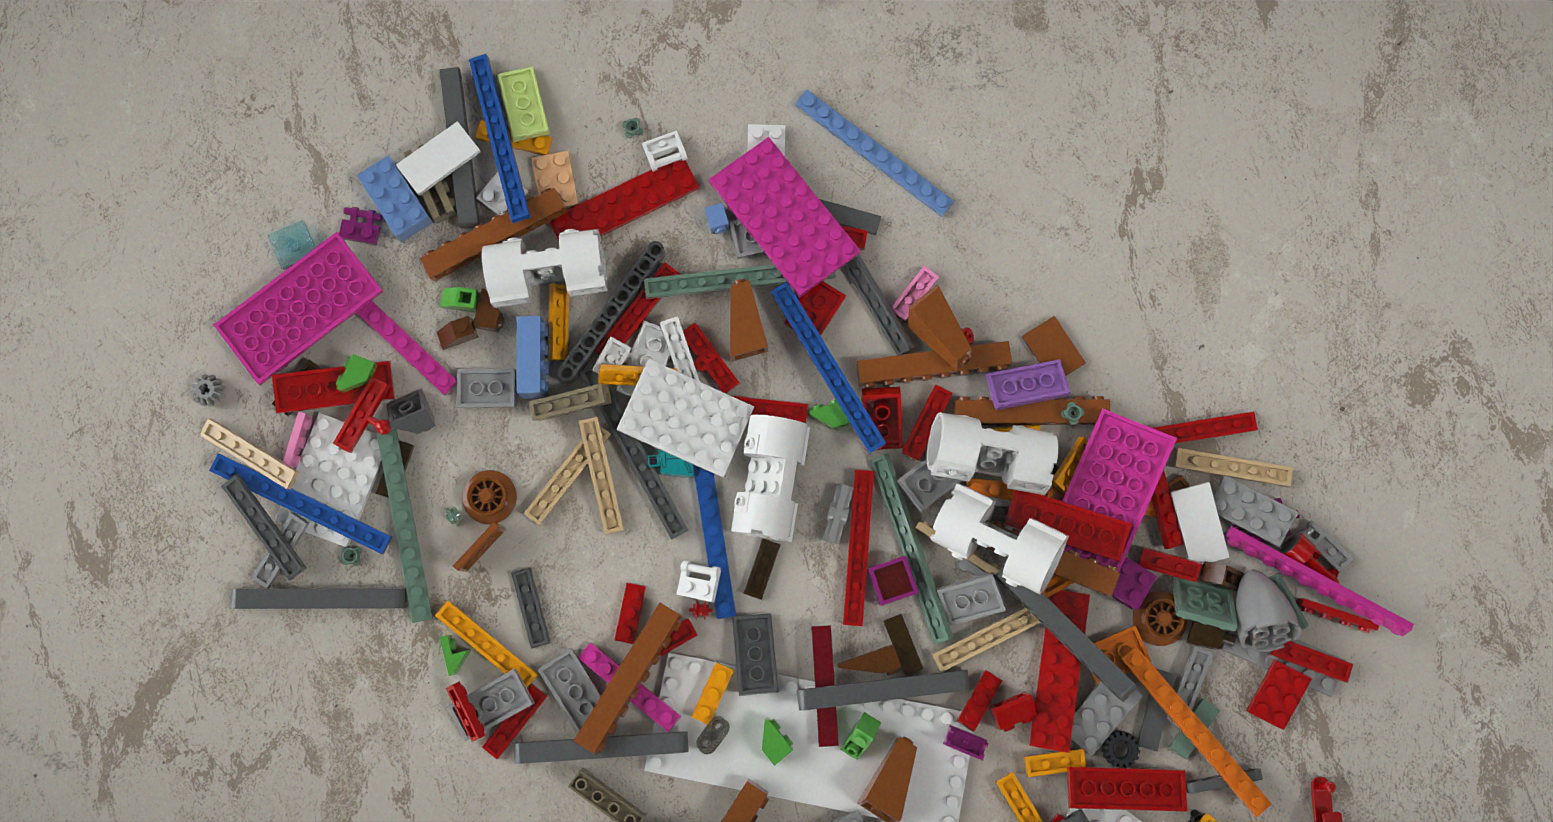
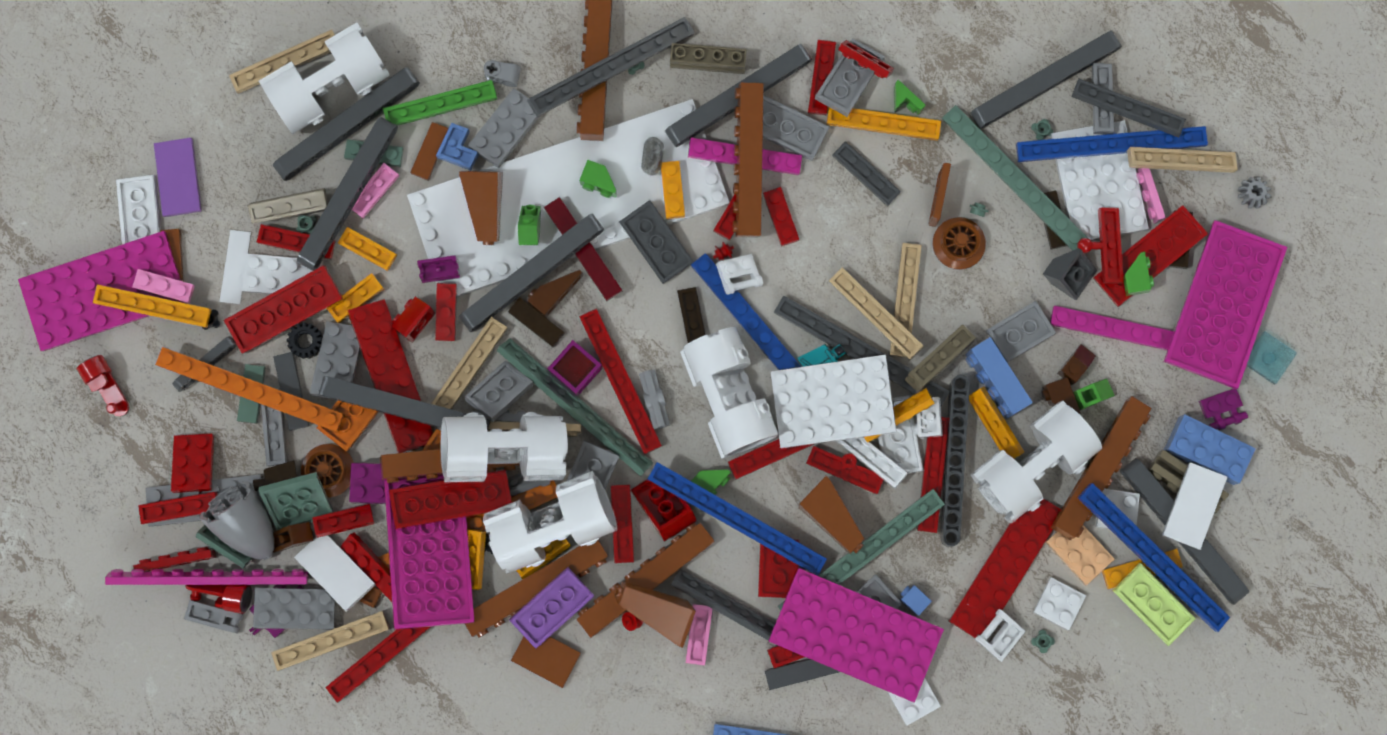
camera: 150 degrees right, 0 degrees up
(599, 149) = (1059, 603): none -> white plate
(1072, 407) = (493, 603): sand green plate -> none

